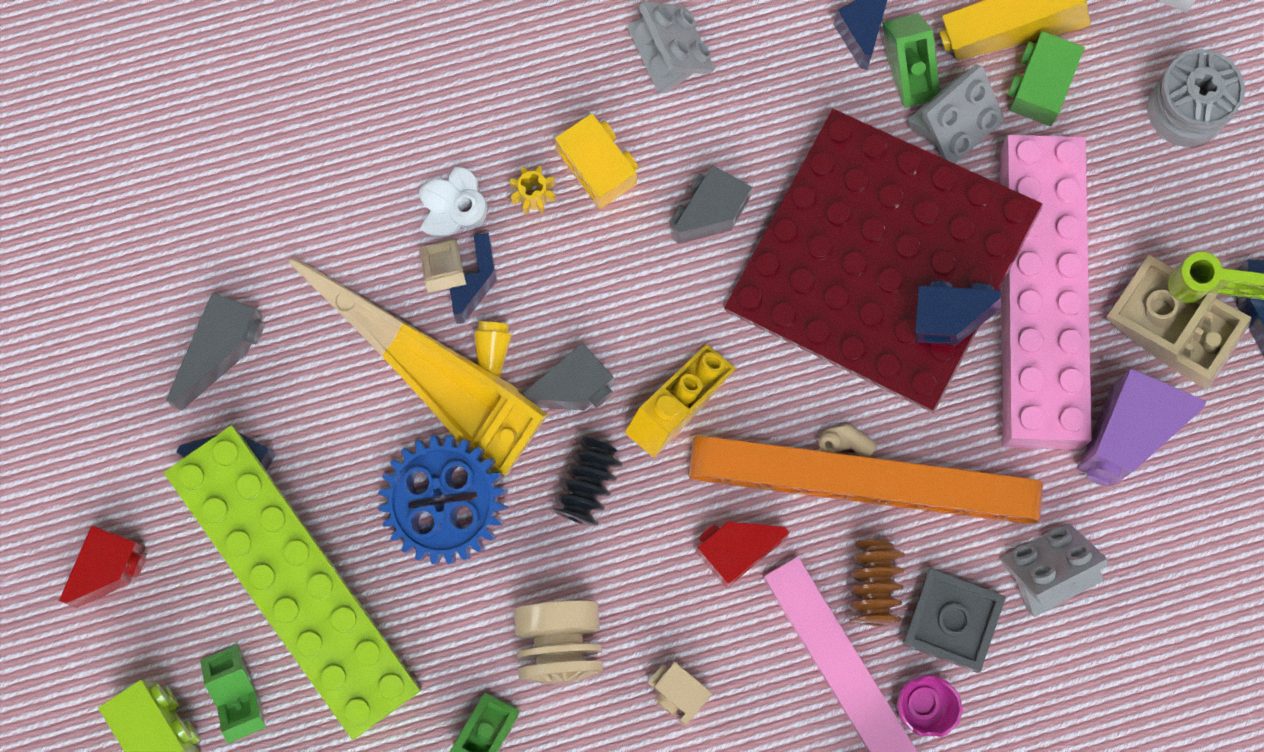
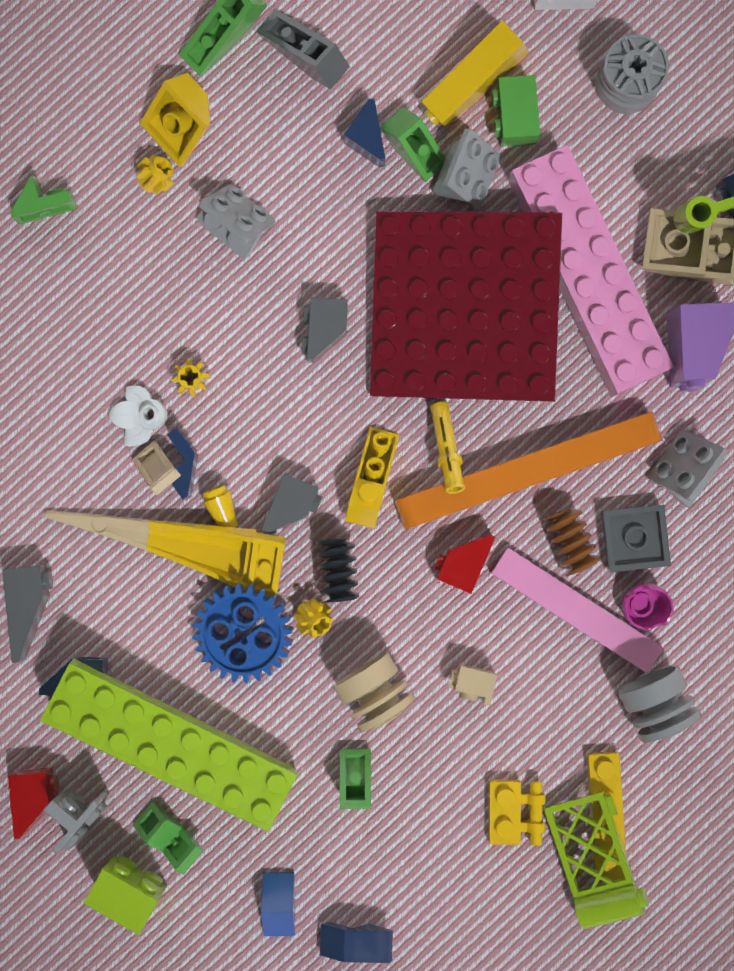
camera: 25 degrees left, 10 degrees up
(143, 611) = (72, 814): none -> light grey bracket
(532, 523) = (313, 618): none -> yellow gear
(596, 160) = (226, 333): yellow brick -> none
(780, 419) = (452, 479): none -> yellow pin
(844, 438) = (500, 446): tan arm -> none
(952, 313) = (536, 328): dark blue slope -> none

